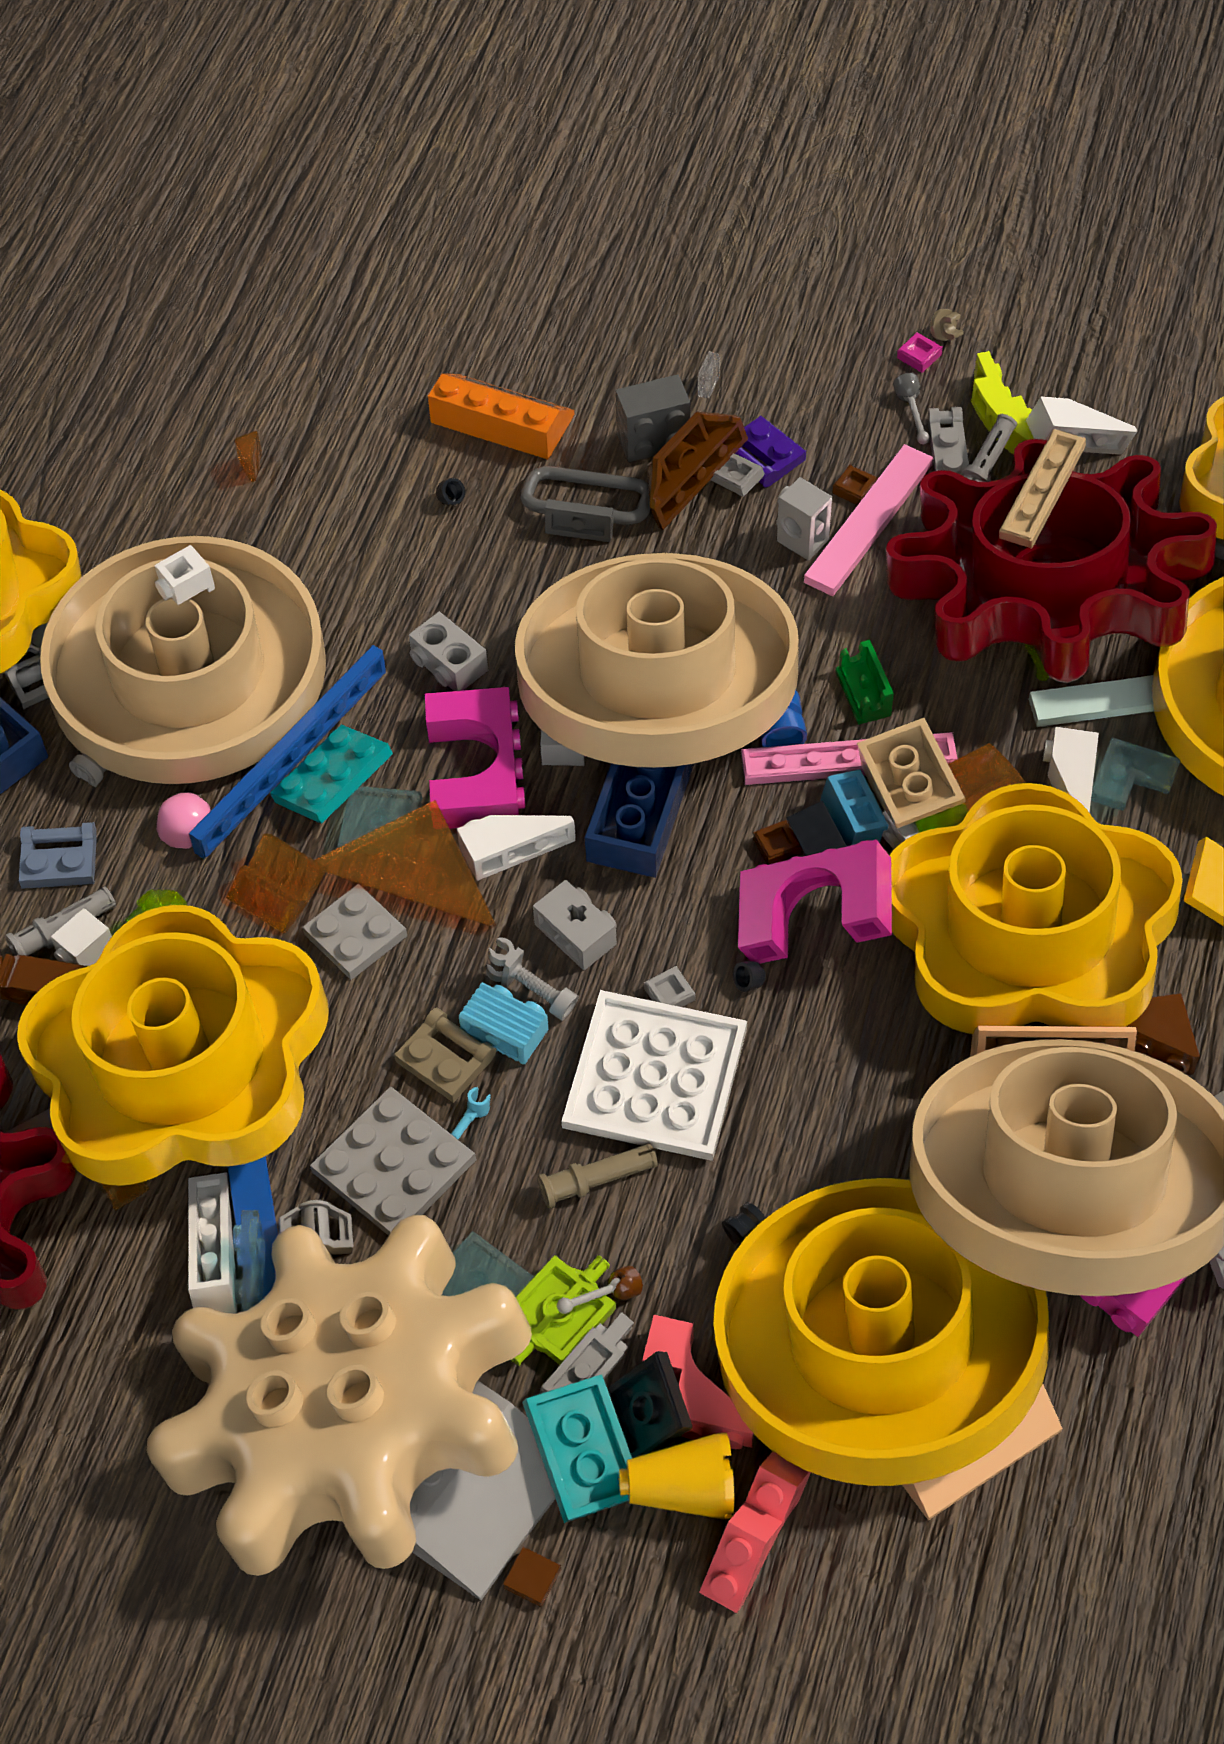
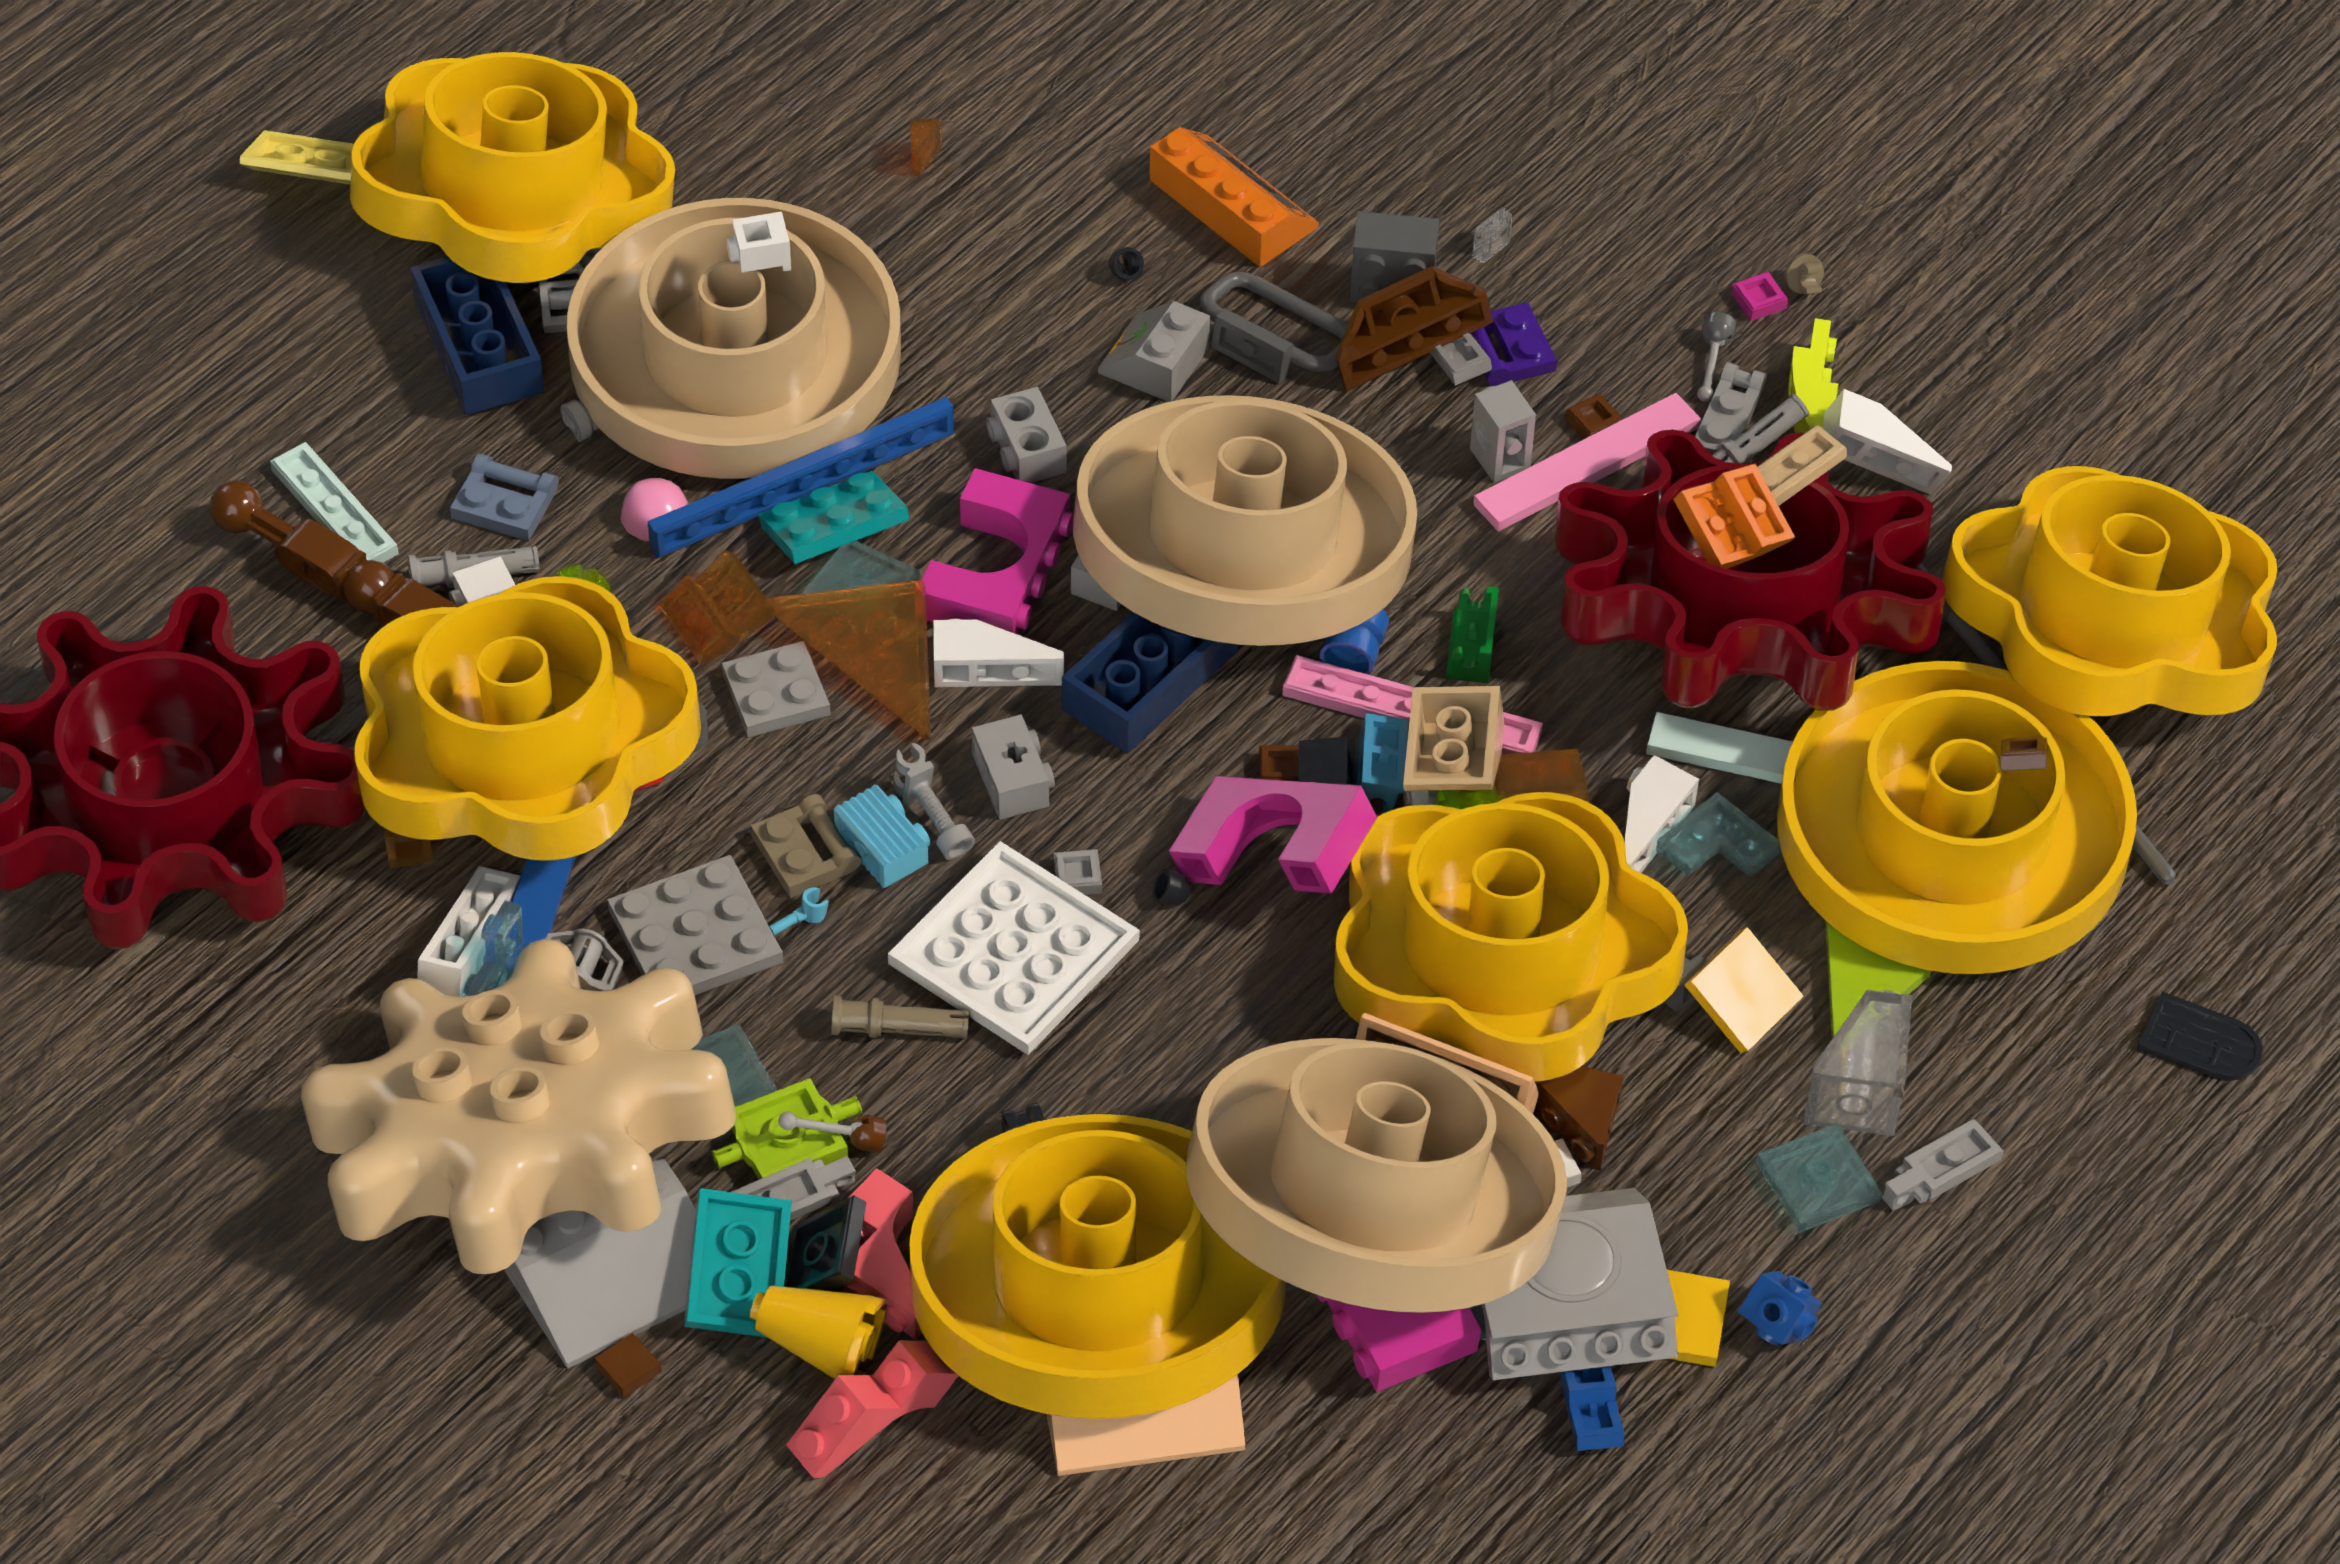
camera: 20 degrees right, 5 degrees down
(509, 548) = (1159, 350): none -> light grey slope
(1038, 521) = (1734, 517): none -> orange slope

